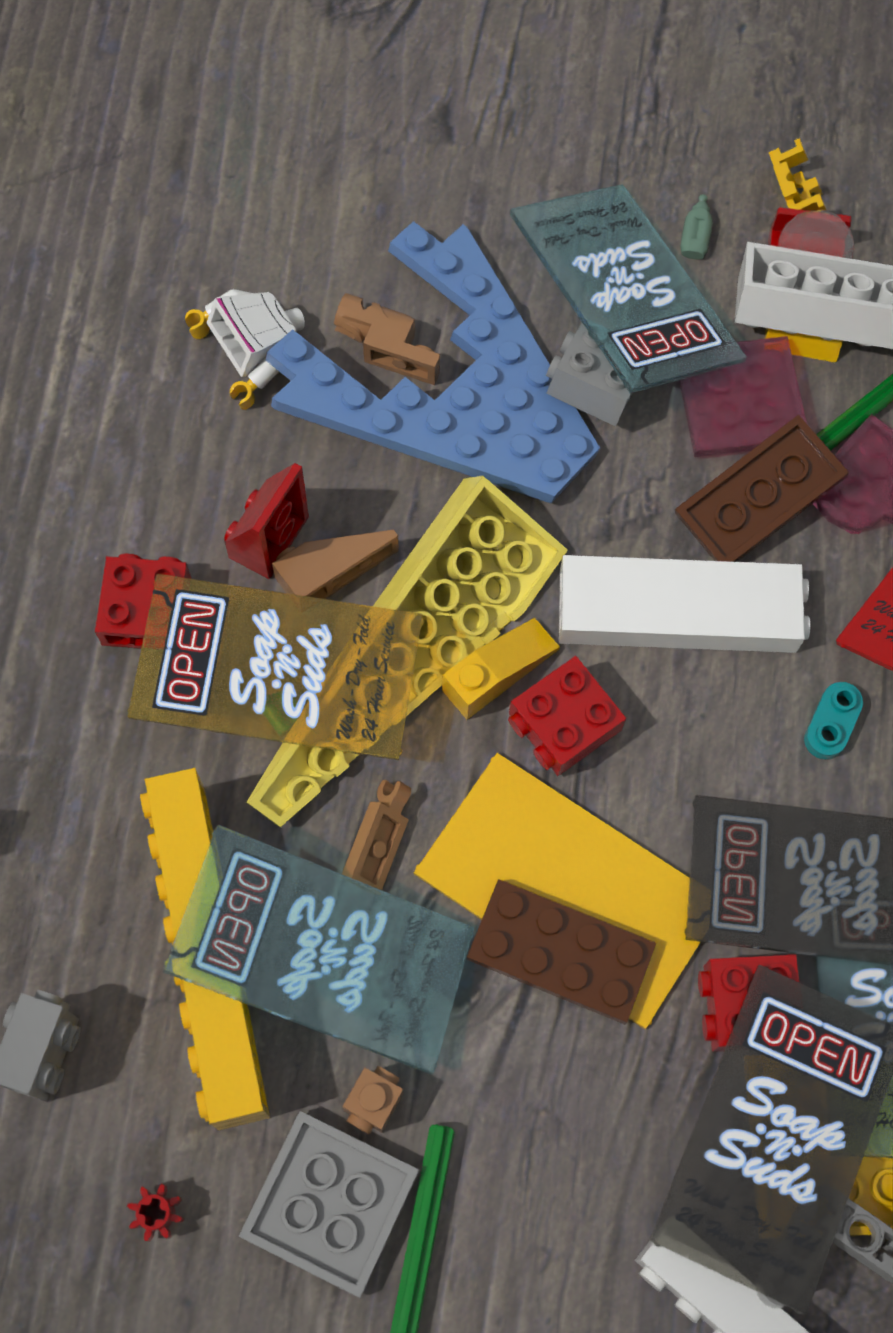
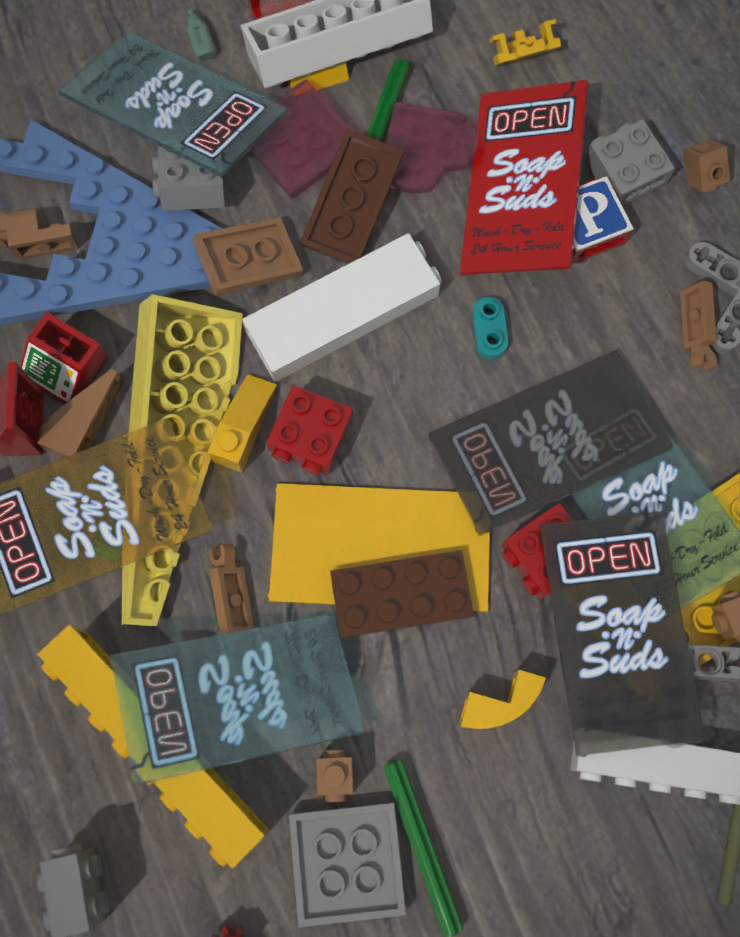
camera: 30 degrees left, 5 degrees up
(348, 490) = (61, 358): none -> red slope
(581, 1139) = (486, 712): none -> yellow brick
(609, 491) = (247, 255): none -> medium nougat plate

